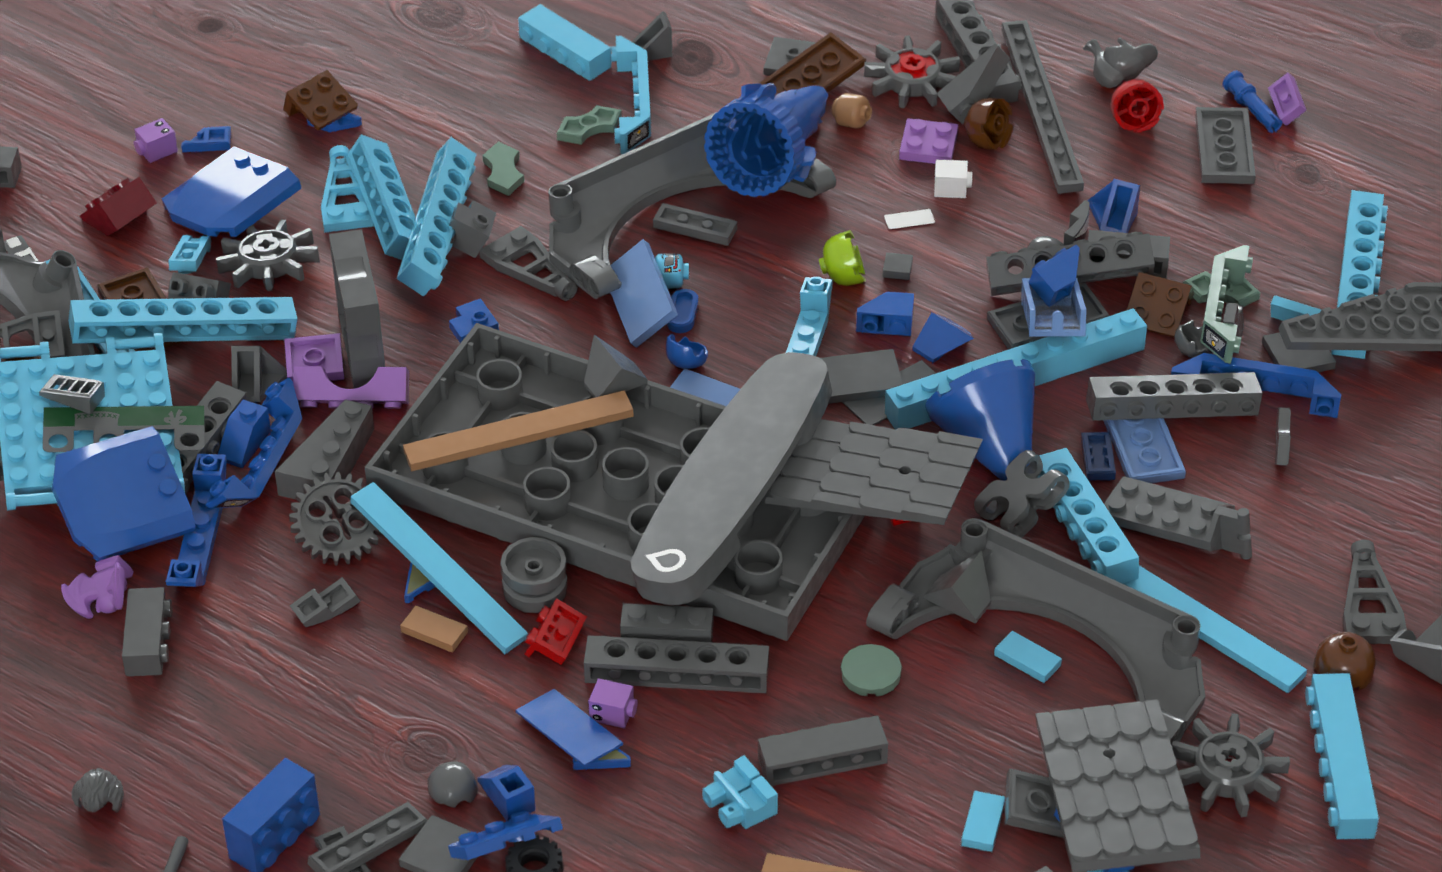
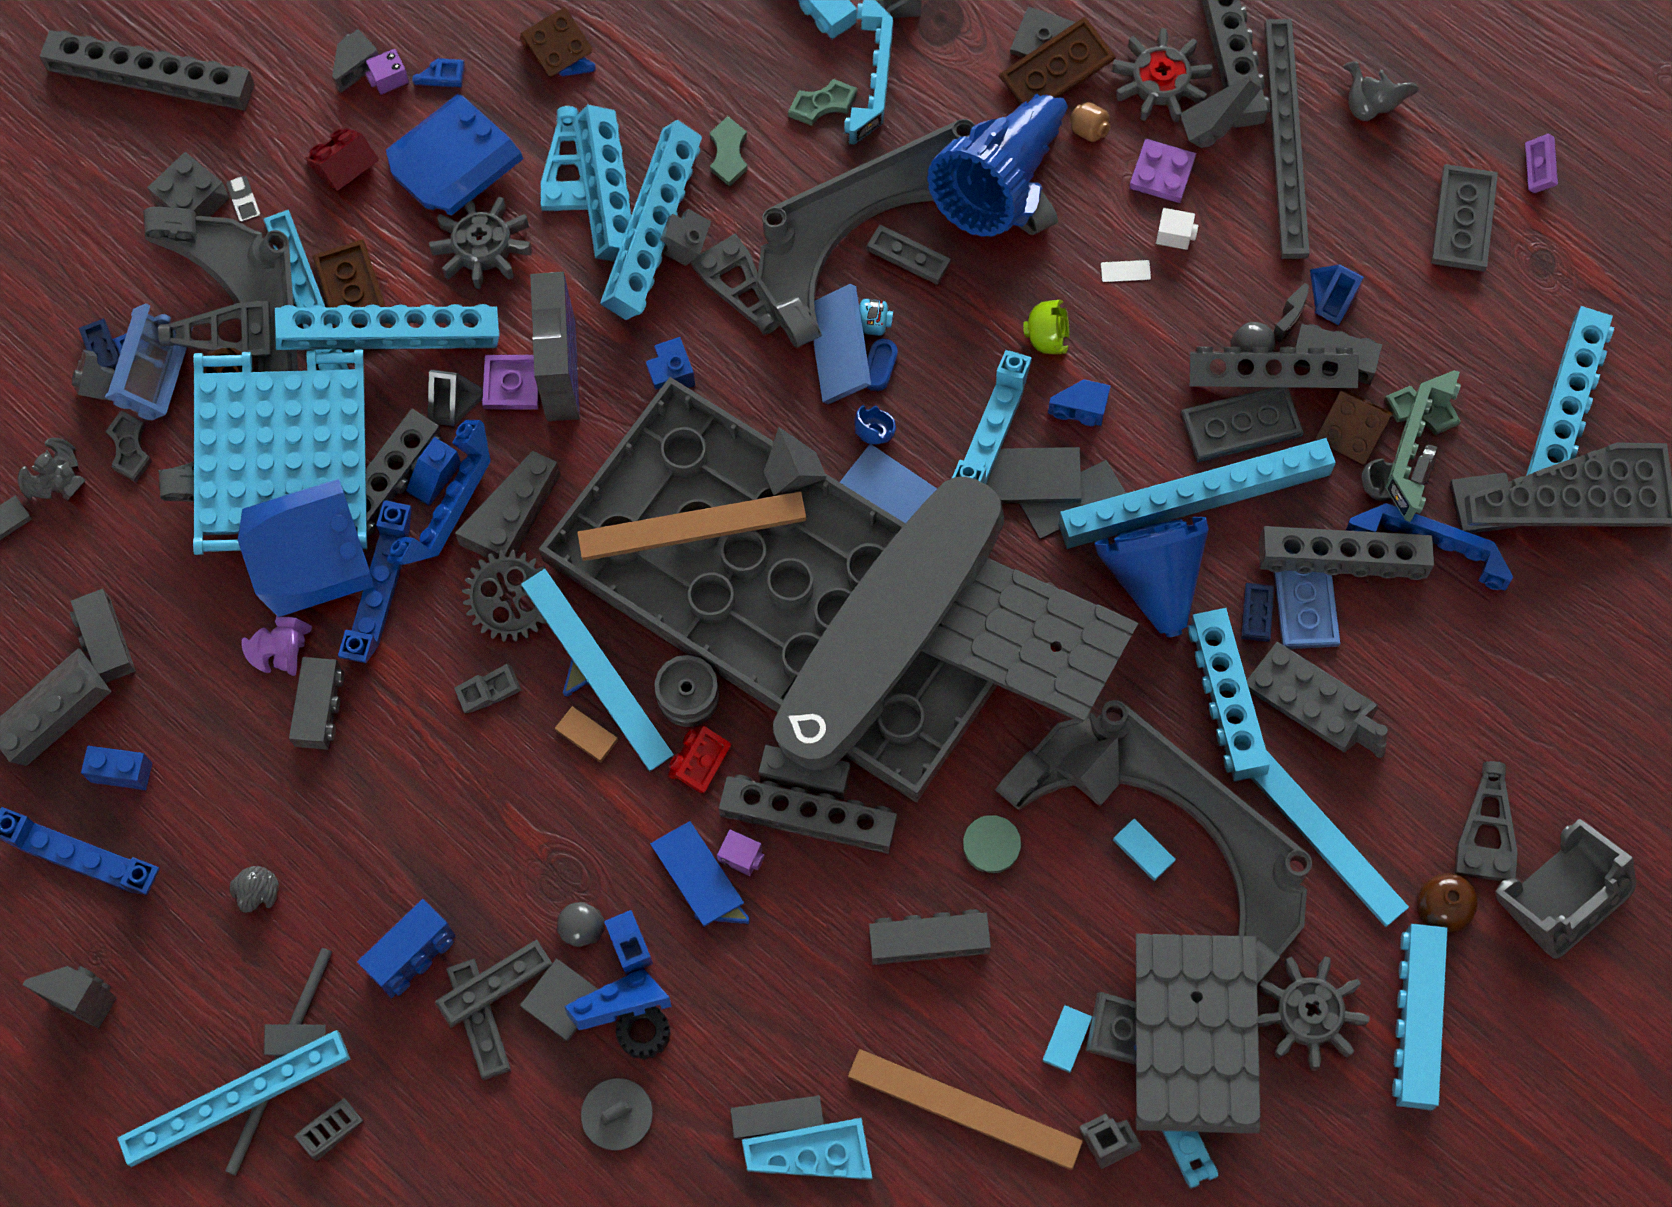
camera: 10 degrees right, 25 degrees up
(85, 398) = (279, 441): dark grey slope -> none
(117, 419) = (306, 457): piece -> none
(120, 134) = (351, 59): none -> dark grey slope
(189, 254) = (404, 232): medium azure plate -> none
(190, 286) = (407, 283): dark grey hips -> none
(386, 387) = (508, 423): medium lavender arch -> none
(744, 793) = (848, 977): medium azure hips -> none
(897, 266) = (1102, 335): dark grey tile -> none
(939, 337) = (1132, 439): blue slope -> none
(989, 123) = (1226, 161): reddish brown cylinder -> none
(1022, 494) = (1171, 661): dark grey piece -> none
(1056, 277) = (1257, 396): blue slope -> none
(1060, 319) = (1245, 432): medium blue door -> none
(1136, 105) = (1382, 156): red cylinder -> none
(1246, 95) = (1500, 152): blue pin -> none
(1282, 436) = (1444, 617): dark grey tile -> none
(1286, 309) = (1493, 457): medium azure tile -> none

